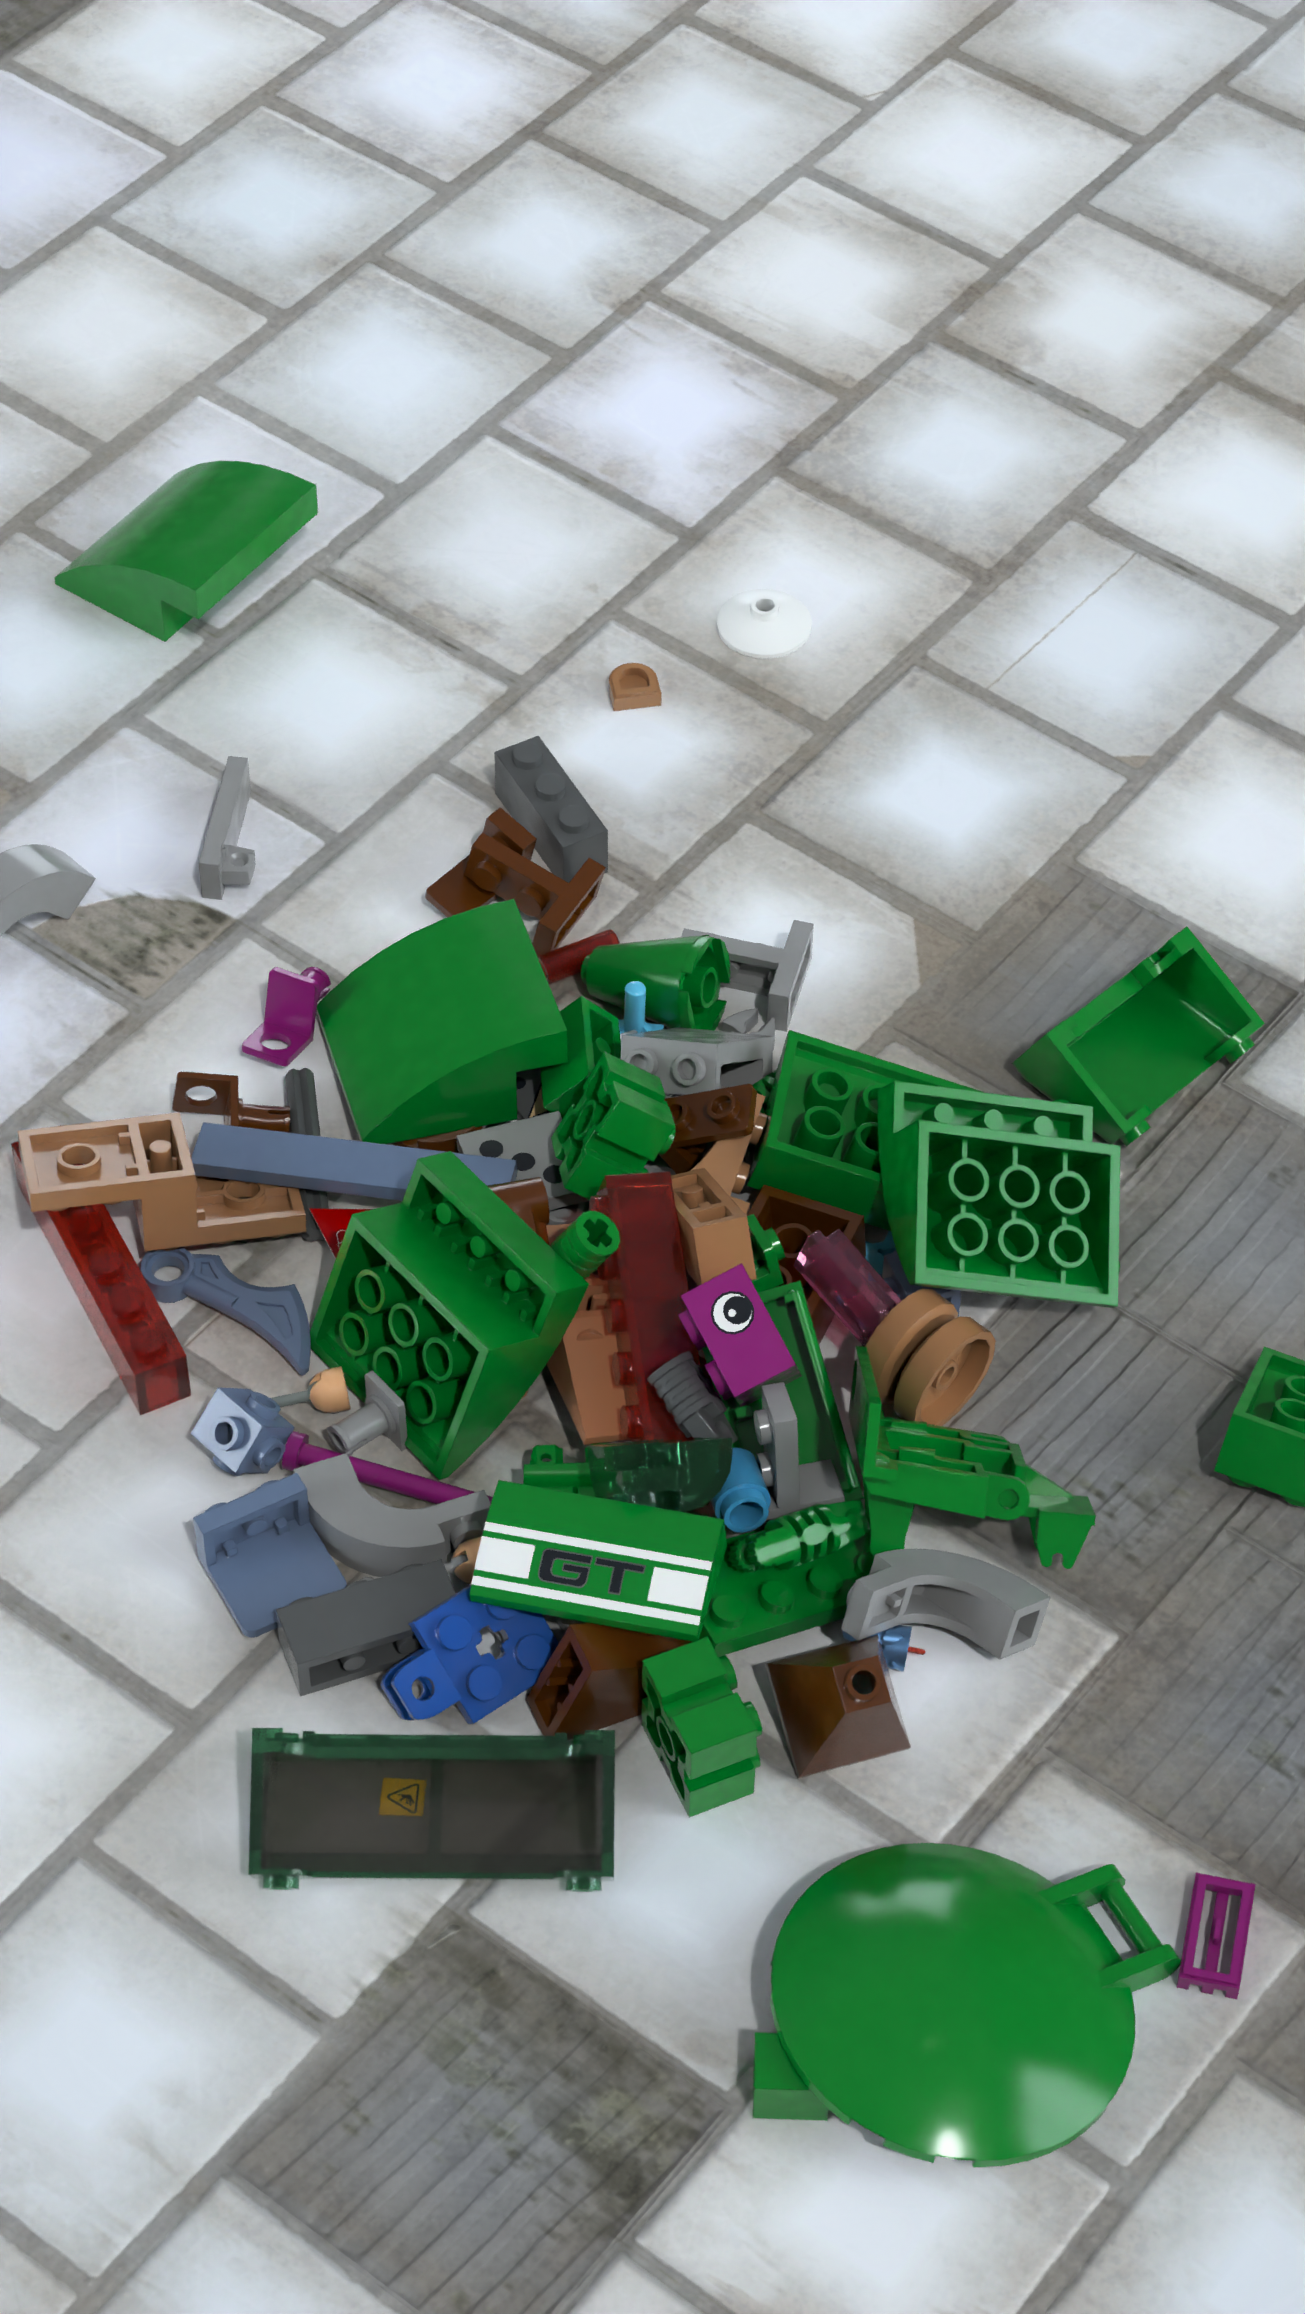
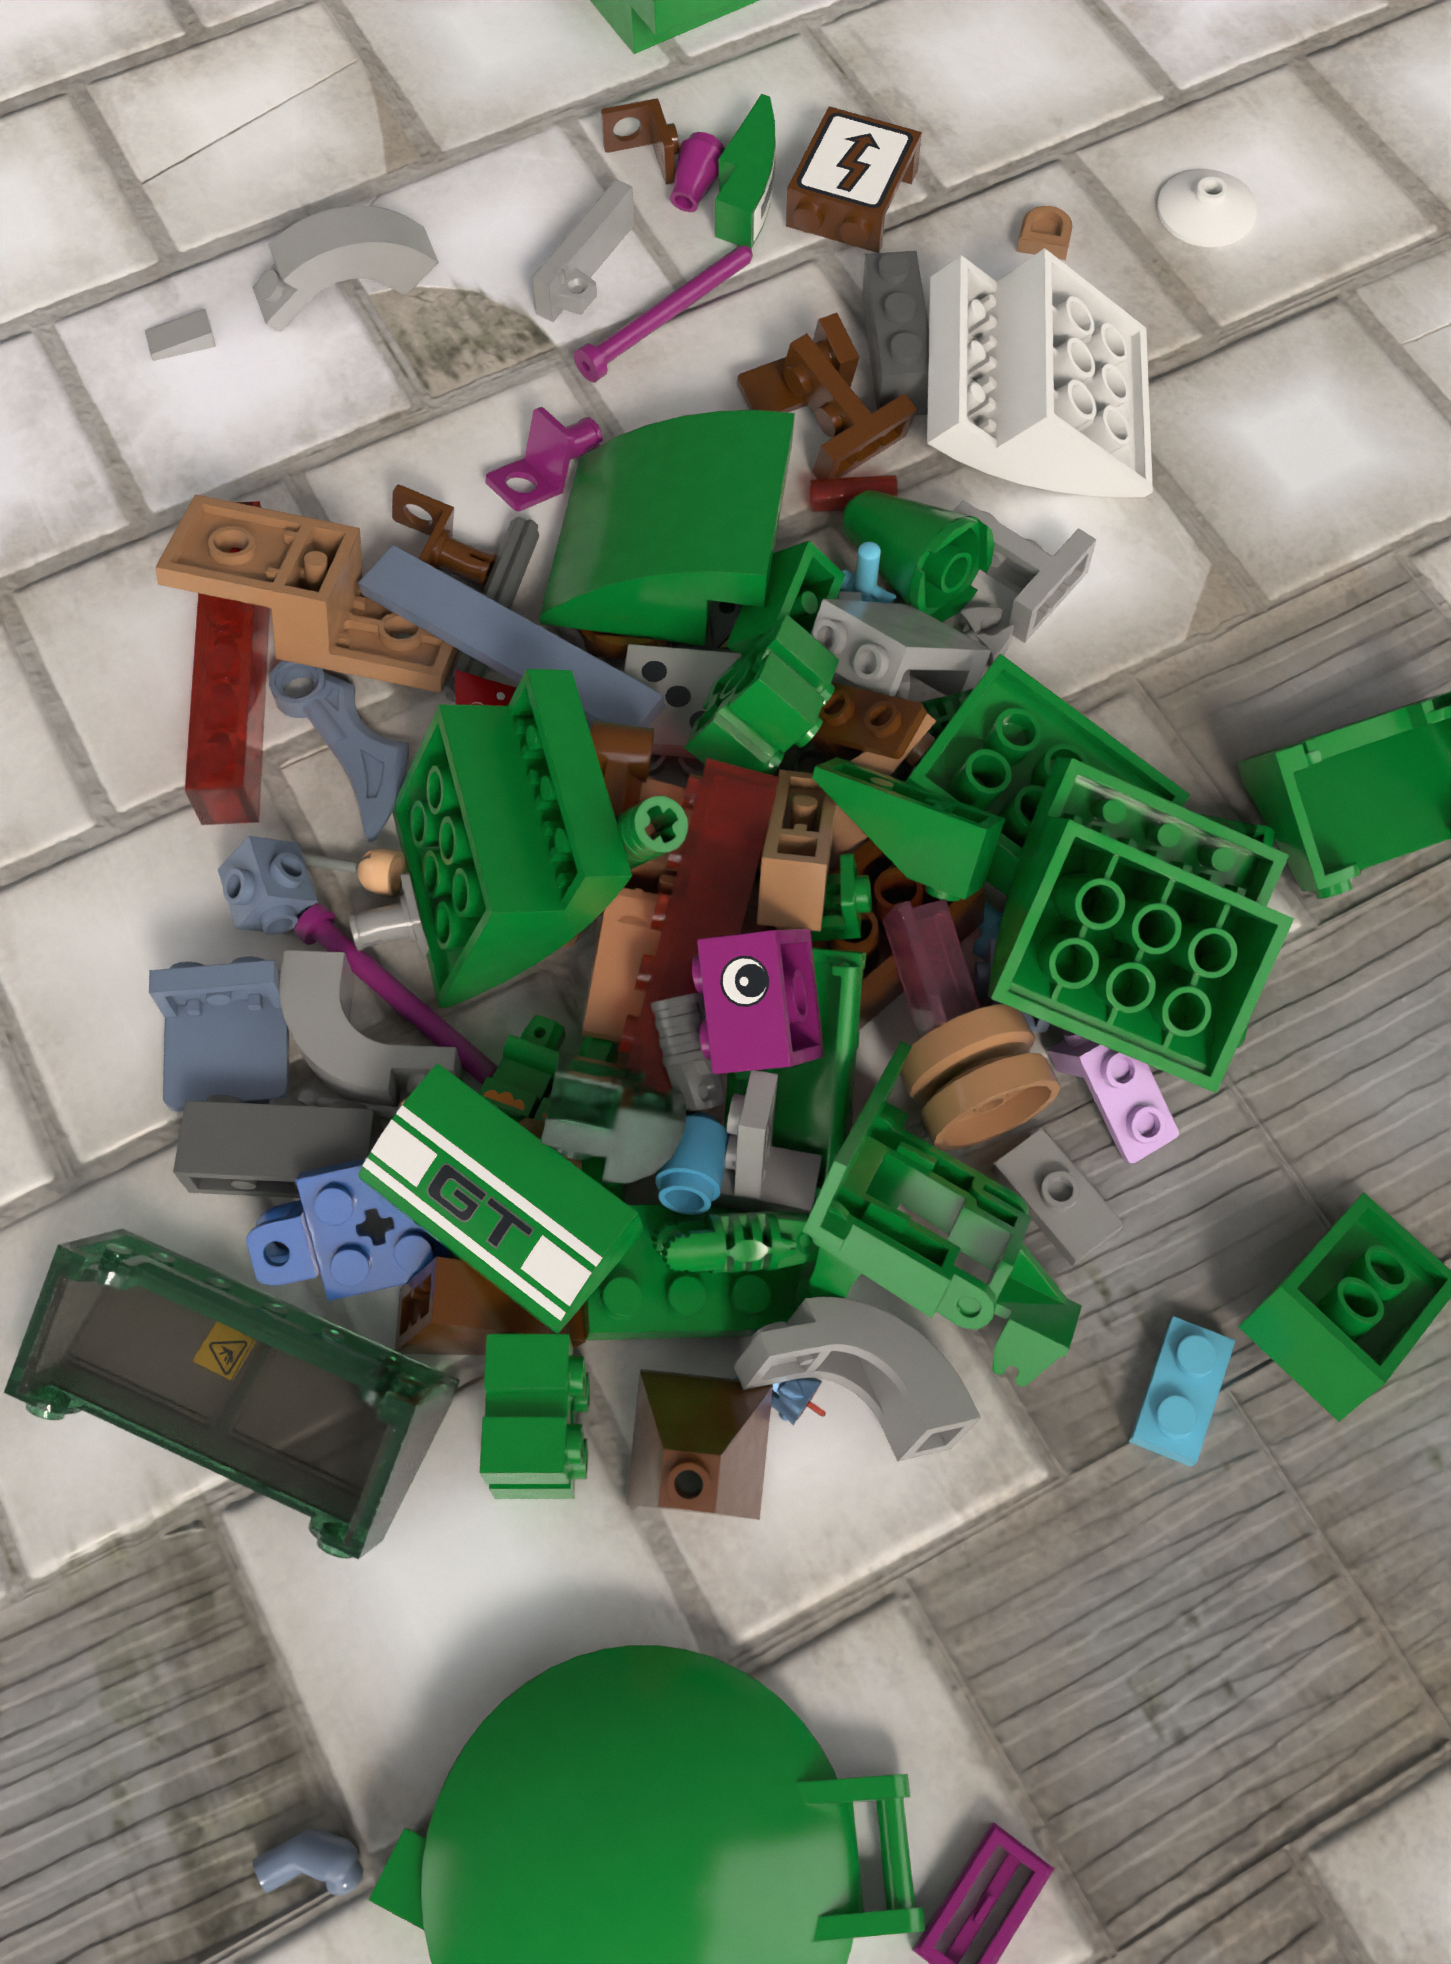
camera: 25 degrees right, 15 degrees up
(229, 701) = (651, 130): none -> reddish brown bracket
(284, 919) = (593, 360): none -> magenta bar
(289, 725) = (695, 170): none -> magenta cone
(342, 718) = (747, 177): none -> green slope
(439, 692) = (851, 178): none -> panel
(683, 2099) = (313, 1854): none -> sand blue arm
(697, 810) = (1039, 379): none -> white slope
(801, 1183) = (920, 831): none -> green slope
(1042, 1335) = (1122, 1092): none -> lavender bracket
(1045, 1441) = (1058, 1197): none -> light grey plate
(1193, 1537) = (1182, 1391): none -> medium azure plate

